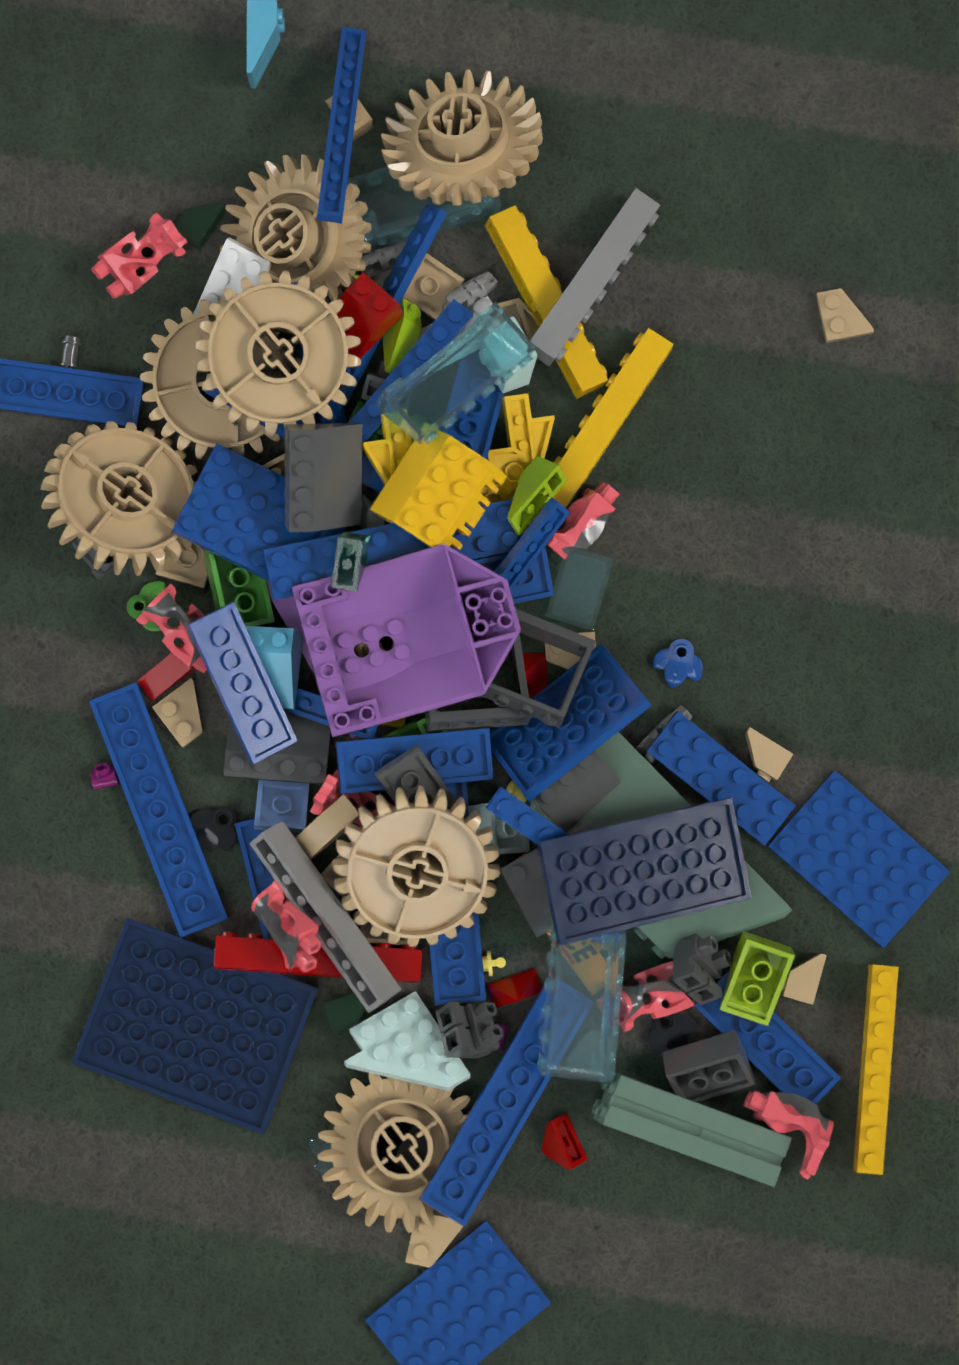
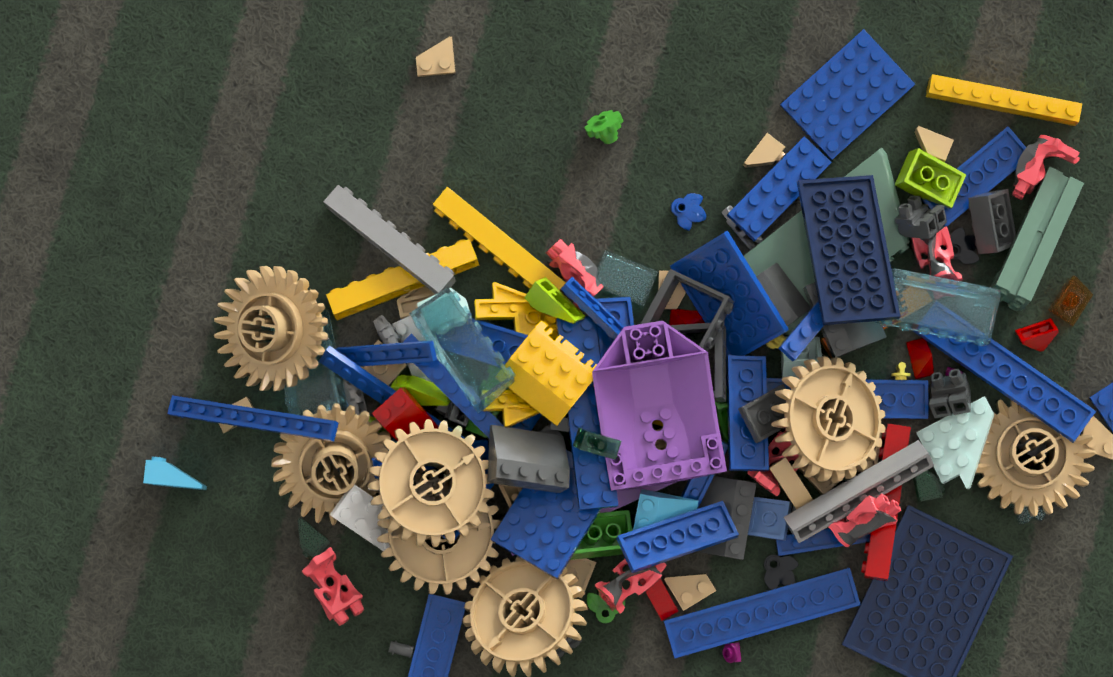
camera: 85 degrees left, 0 degrees up
(444, 288) = (390, 353): none -> blue plate
(613, 1185) = (1071, 300): none -> clear orange slope
(777, 540) = (604, 126): none -> bright green plant

